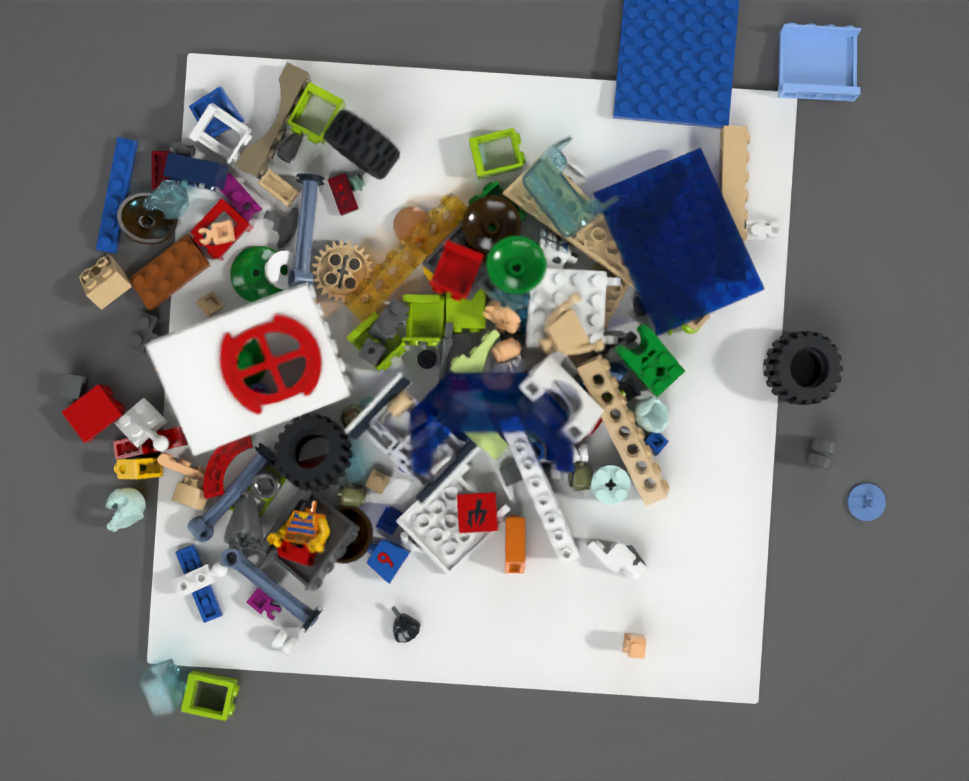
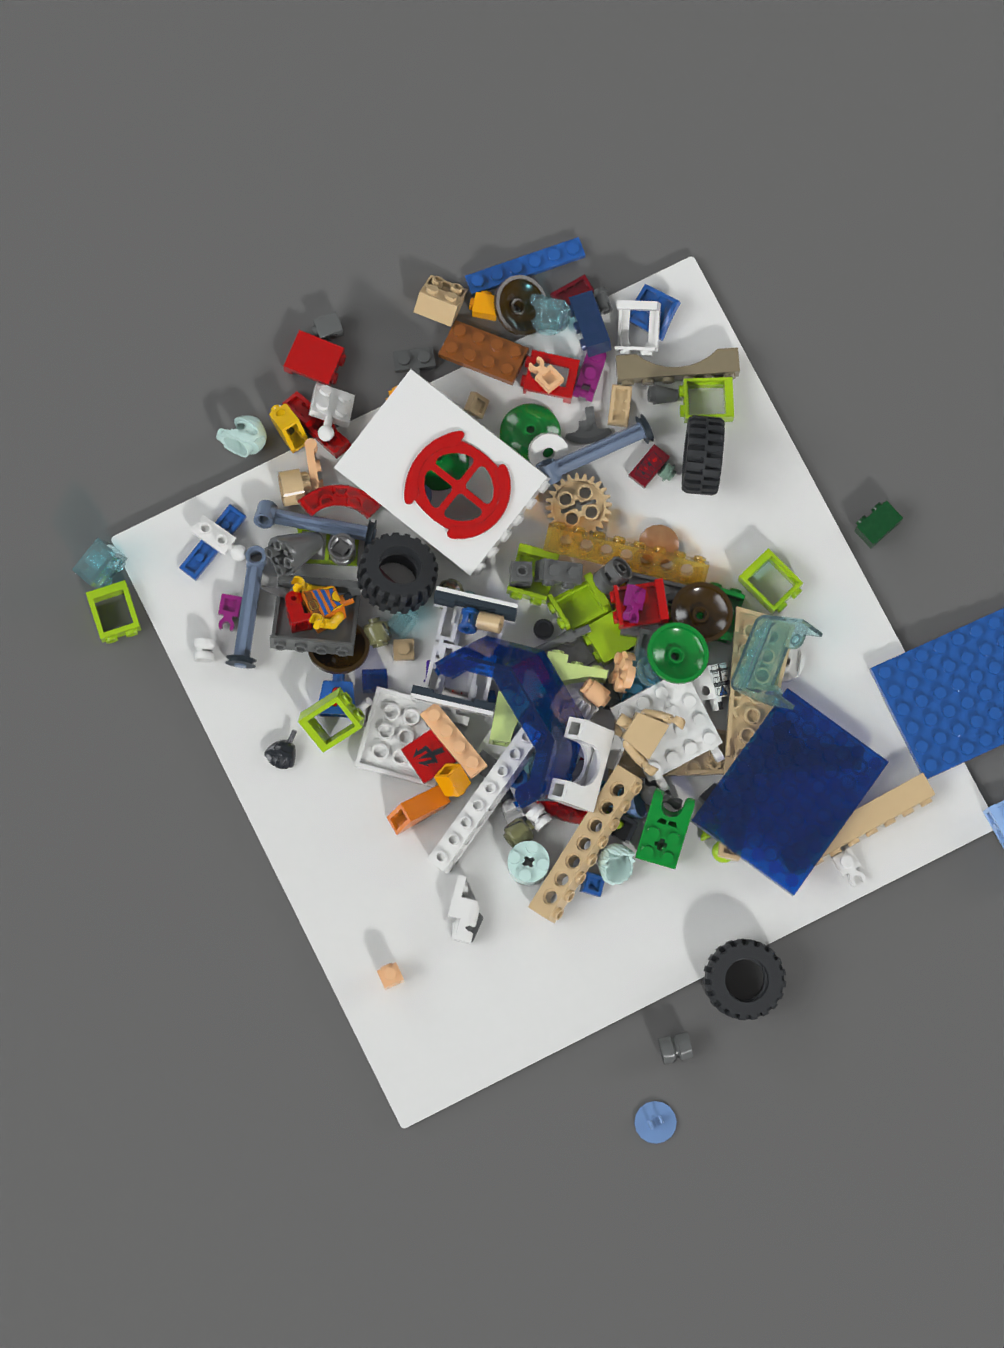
camera: 55 degrees right, 10 degrees down
(129, 249) = (483, 306): none -> light orange brick
(394, 422) = (464, 623): none -> blue bush
(406, 591) = (317, 732): none -> lime window
(417, 278) = (613, 573): none -> dark grey wheel
(451, 274) = (634, 601): none -> magenta plate
(479, 488) = (453, 740): none -> light nougat plate
(499, 38) = (878, 523): none -> dark green brick
(510, 507) = (452, 780): none -> light orange brick

